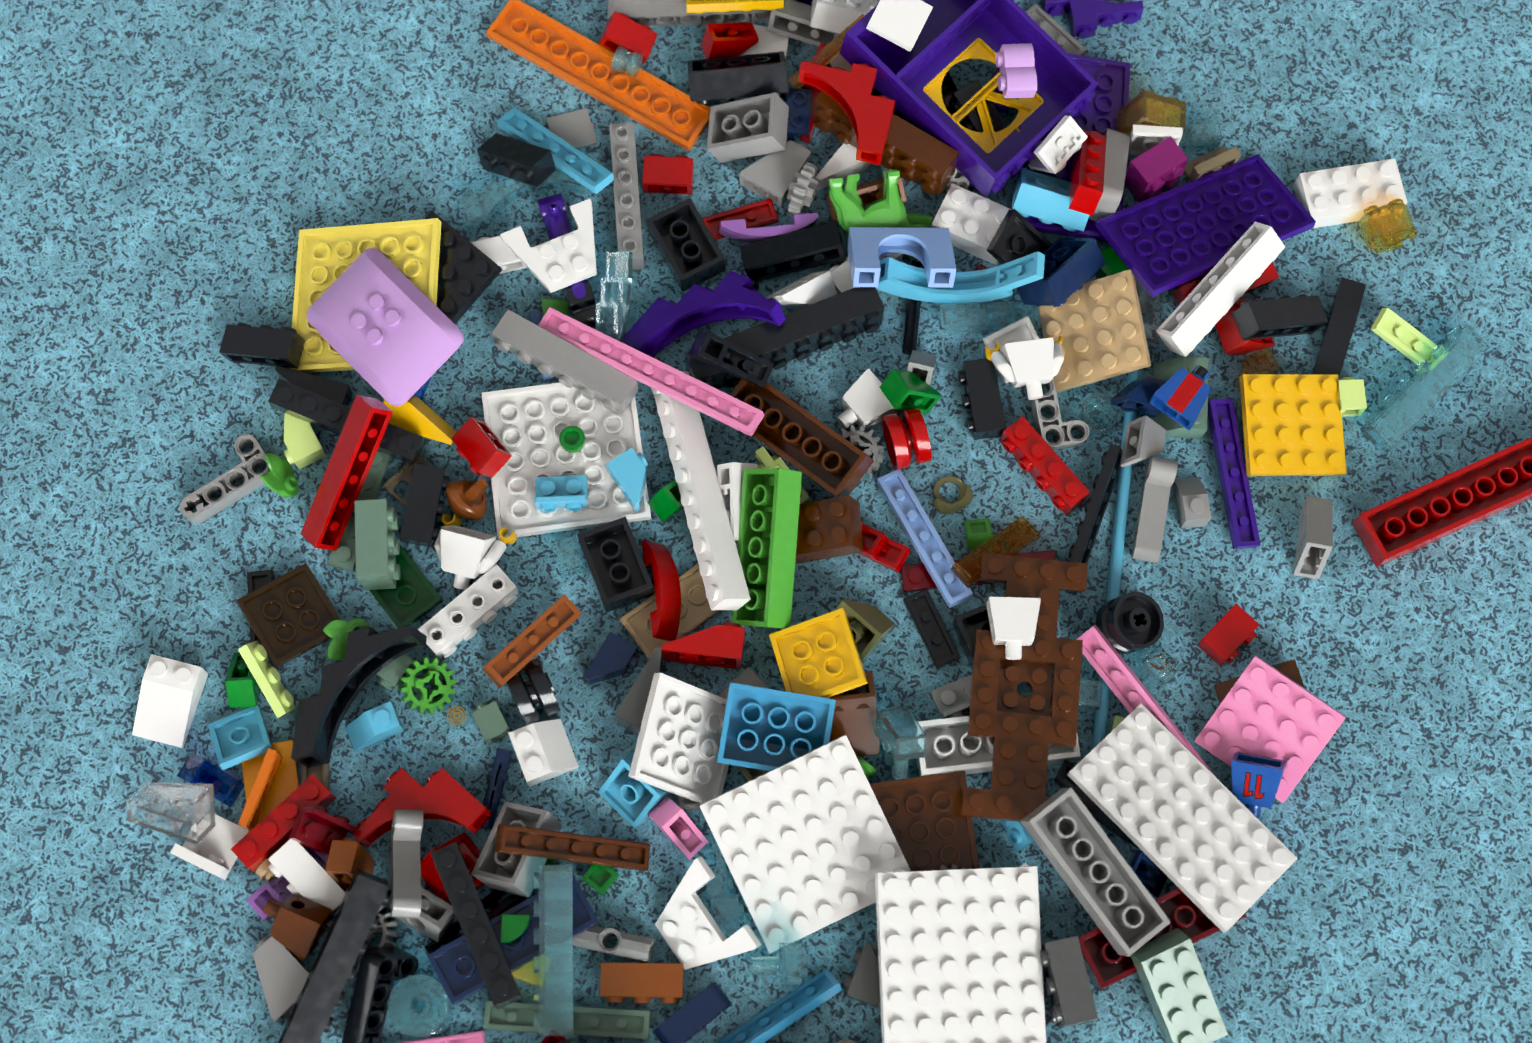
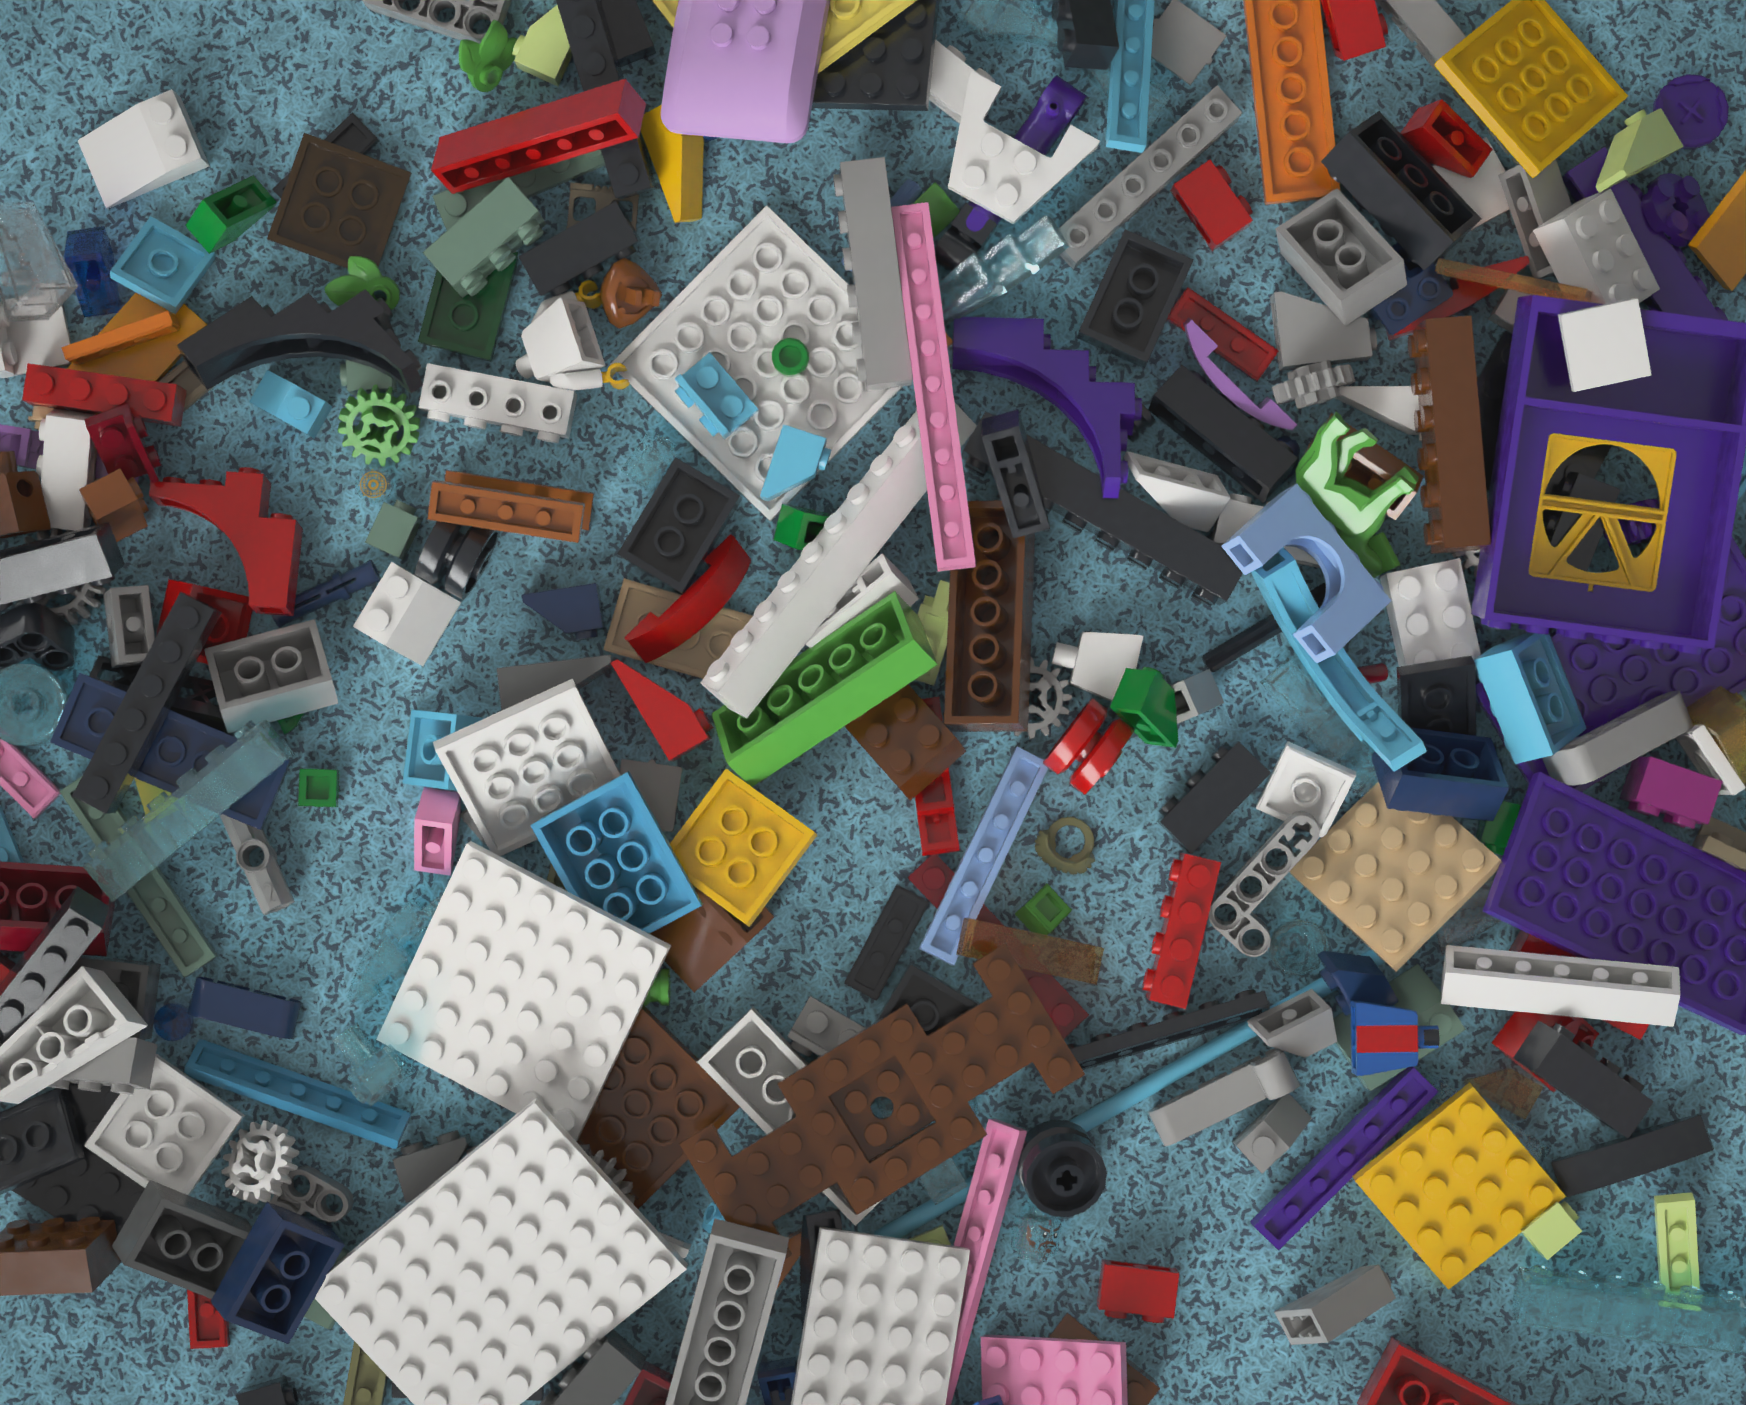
camera: 55 degrees right, 15 degrees up
(267, 678) = (247, 241): yellowish green plate -> none
(405, 863) = (156, 570): light grey beam -> none
(481, 447) = (696, 261): red brick -> none
(513, 927) = (180, 742): green tile -> none
(572, 847) = (316, 737): reddish brown tile -> none
(627, 61) = (1317, 40): clear light blue wheel -> none
(641, 982) = (239, 923): dark orange brick -> none
(691, 928) = (335, 937): white wing -> none
(854, 93) = (1467, 361): red arch -> none
(867, 626) = (826, 867): olive slope -> none
(900, 737) = (720, 1007): clear light blue brick -> none
(1013, 623) = (939, 1045): white torso -> none
(1017, 70) = (1647, 540): lavender brick -> none
(1028, 363) = (1288, 824): white torso -> none
(1058, 146) = (1595, 660): white bracket -> none
(1088, 174) = (1591, 717): red brick -> none

